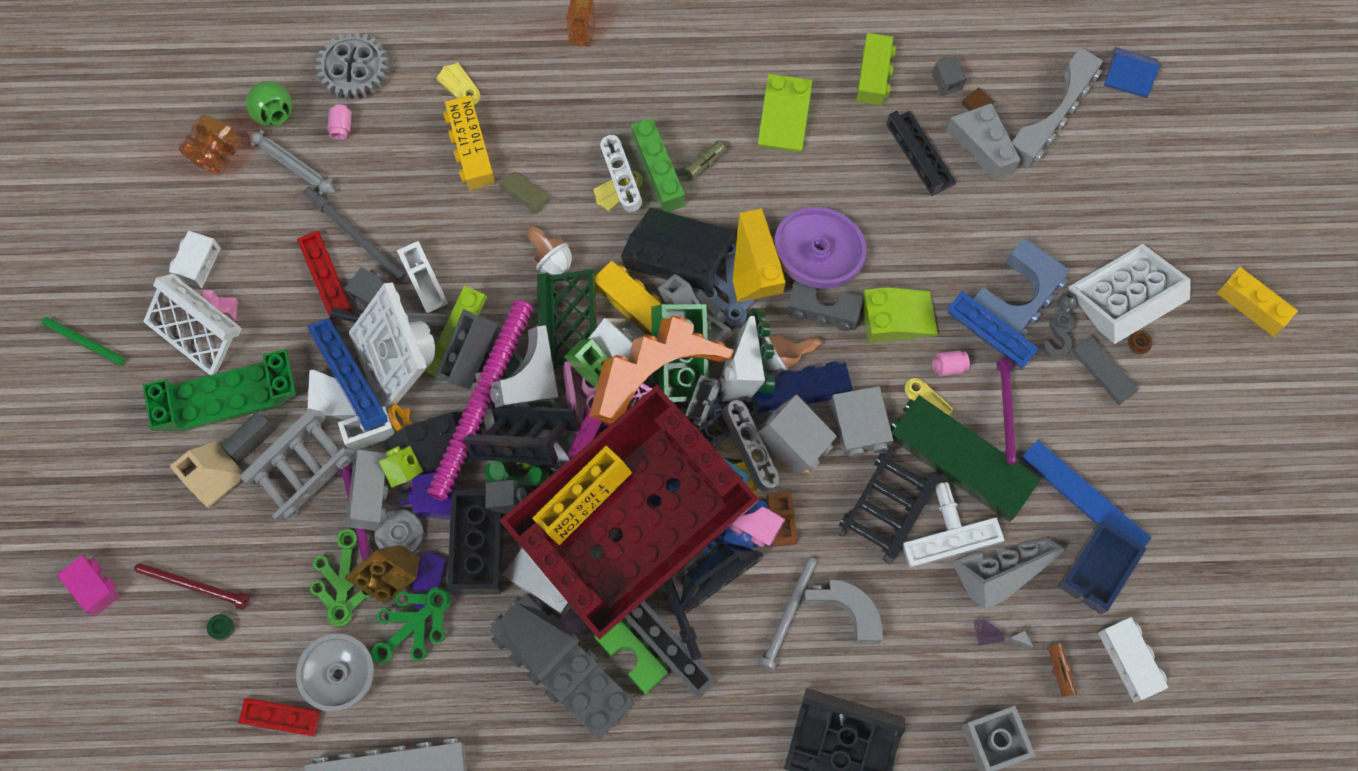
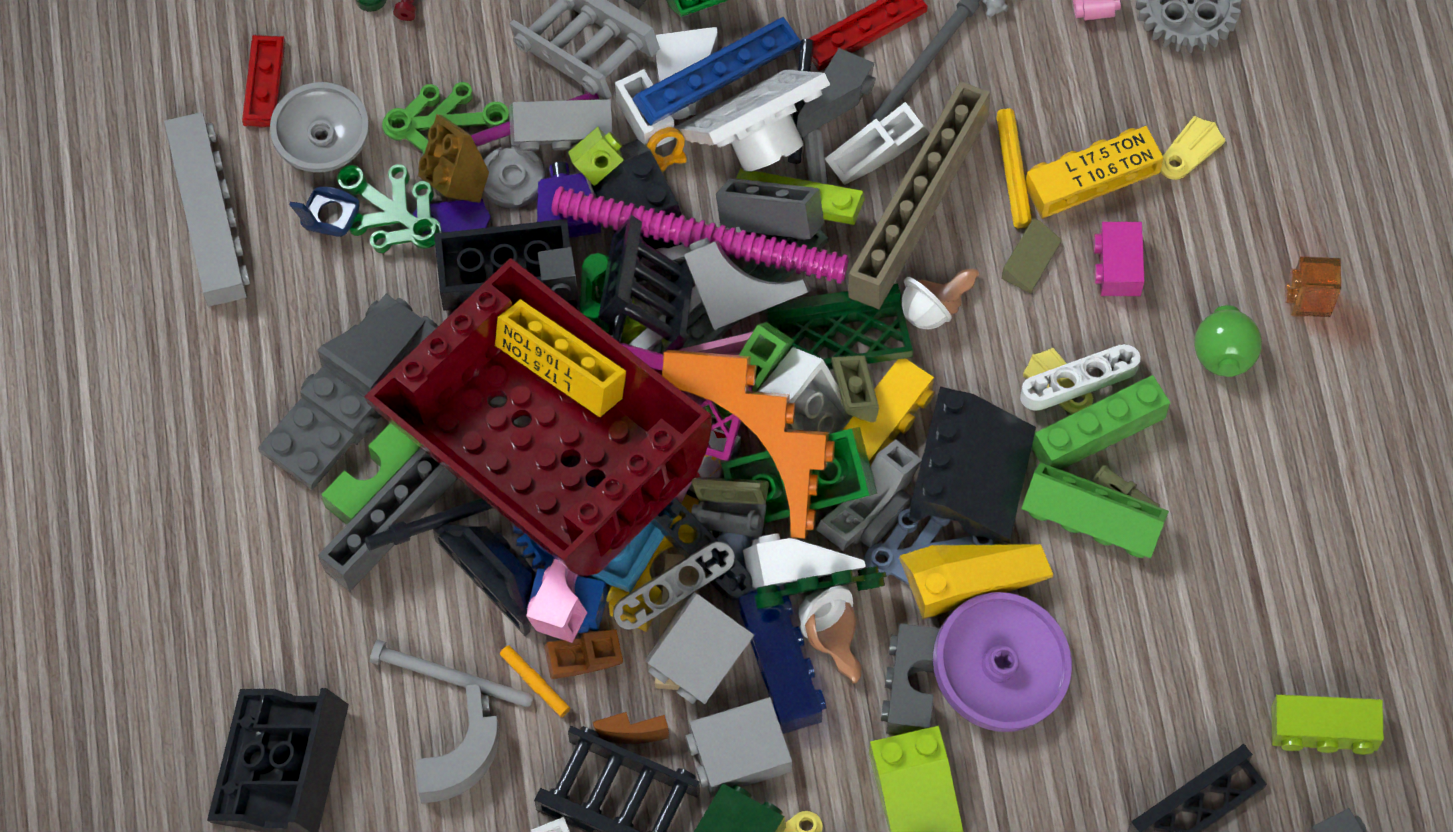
camera: 85 degrees right, 5 degrees down
(392, 678) = (318, 199): none -> dark blue piece
(455, 193) = (1013, 168): none -> yellow axle
(474, 248) = (918, 195): none -> dark tan brick
(537, 136) = (1120, 259): none -> dark pink brick
(609, 80) = (1228, 342): none -> bright green brick
(617, 306) = (856, 387): none -> olive slope
(687, 392) = (730, 490): none -> olive slope
(719, 177) = (1094, 511): none -> bright green brick
(785, 113) = (1224, 597): lime slope -> none
(798, 555) = (535, 681): none -> light orange piece
(842, 496) = (618, 729): none -> dark orange slope

